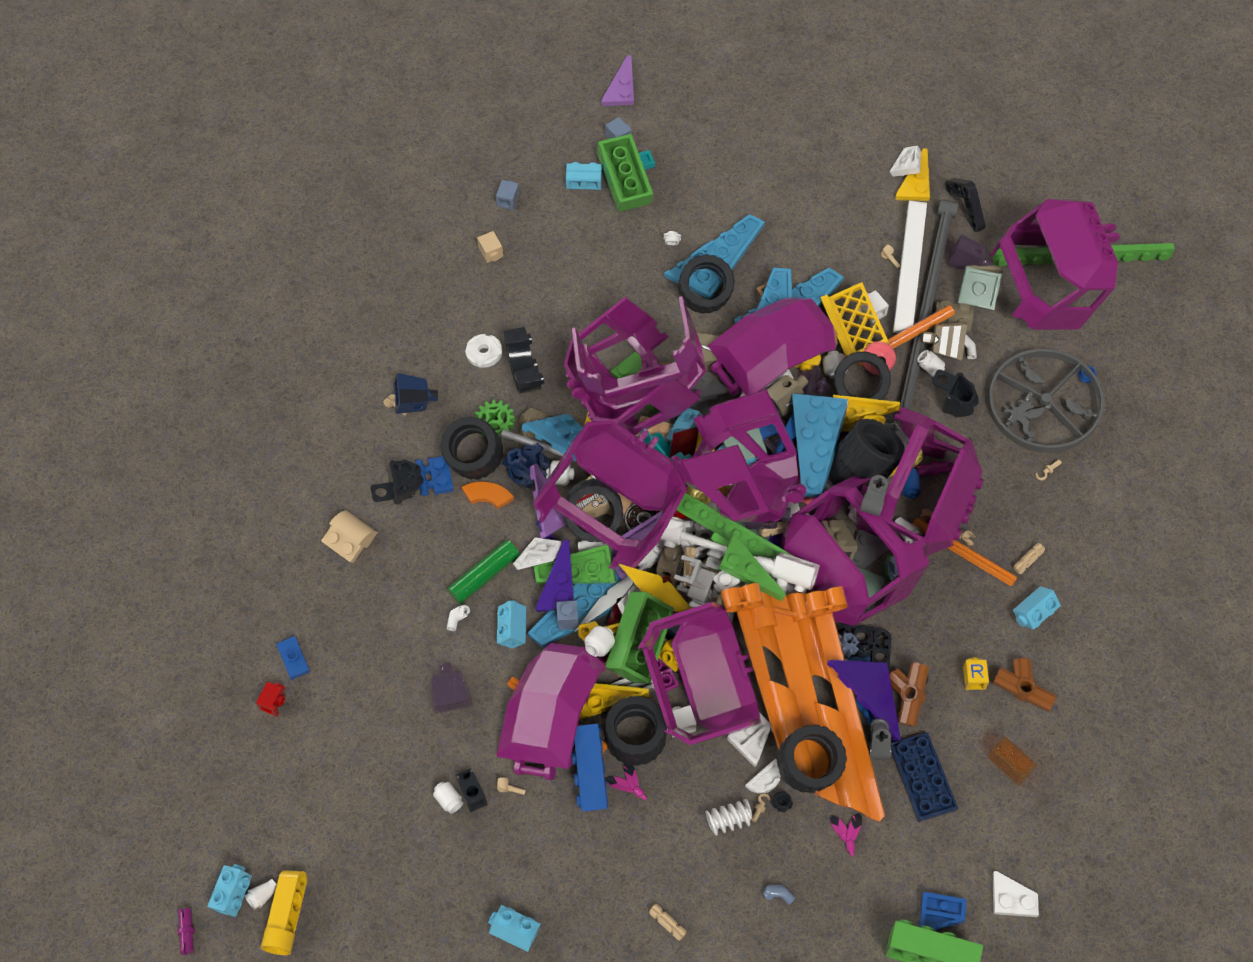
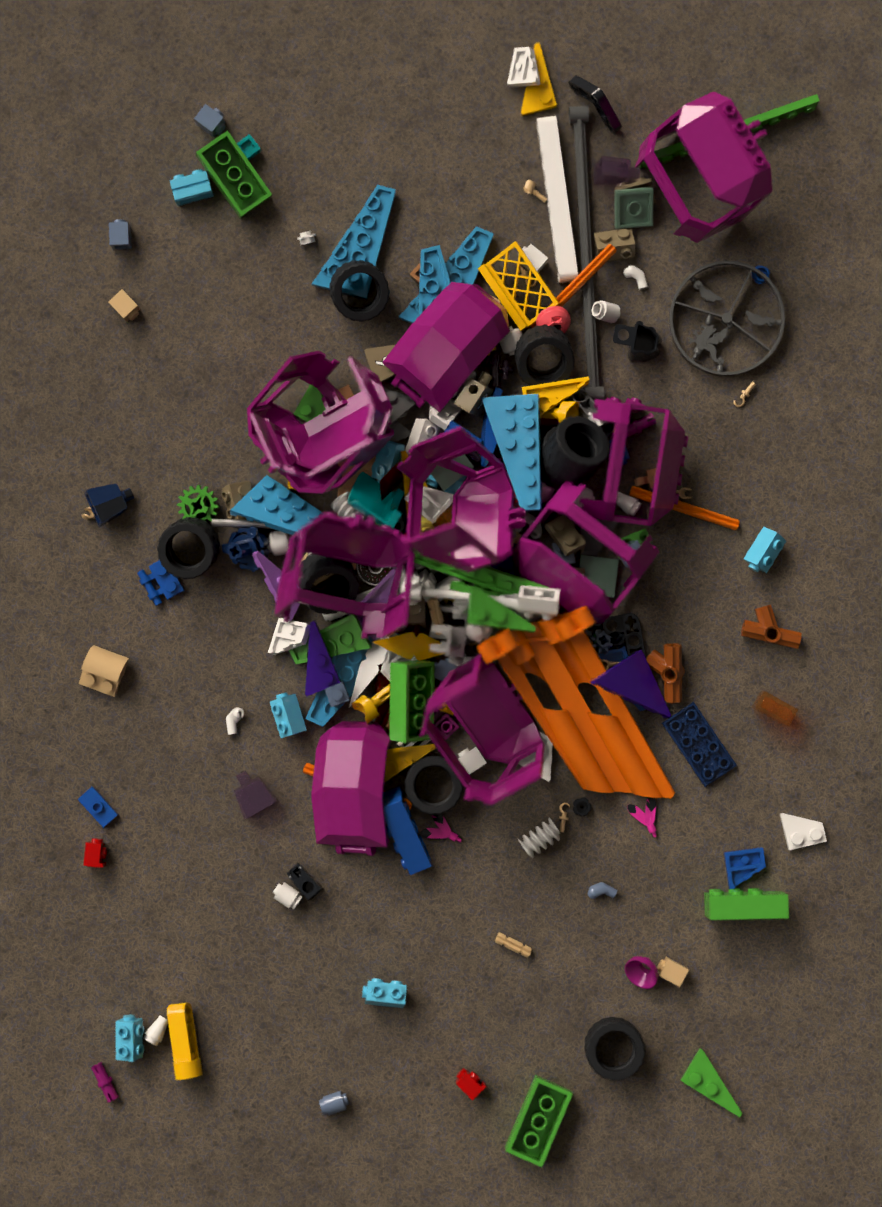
camera: 15 degrees left, 25 degrees up
(403, 481) = (133, 602): black piece -> none
(483, 571) = (242, 667): green brick -> none
(486, 359) = (169, 433): white tile -> none
(487, 492) = (218, 583): orange tile -> none
(502, 786) = (331, 867): tan hand -> none
(522, 364) = (214, 451): black brick -> none
(599, 641) = (377, 720): white head -> none
(621, 89) = (194, 60): medium lavender wing -> none
(766, 779) = (562, 789): white tile -> none
(831, 744) = (620, 782): black tyre -> none
(874, 497) = (595, 516): dark grey piece -> none
(879, 742) = (653, 726): dark grey piece -> none
(947, 339) = (616, 280): torso -> none
(975, 674) = (723, 632): yellow brick -> none
(1030, 557) = (746, 496): tan axle -> none

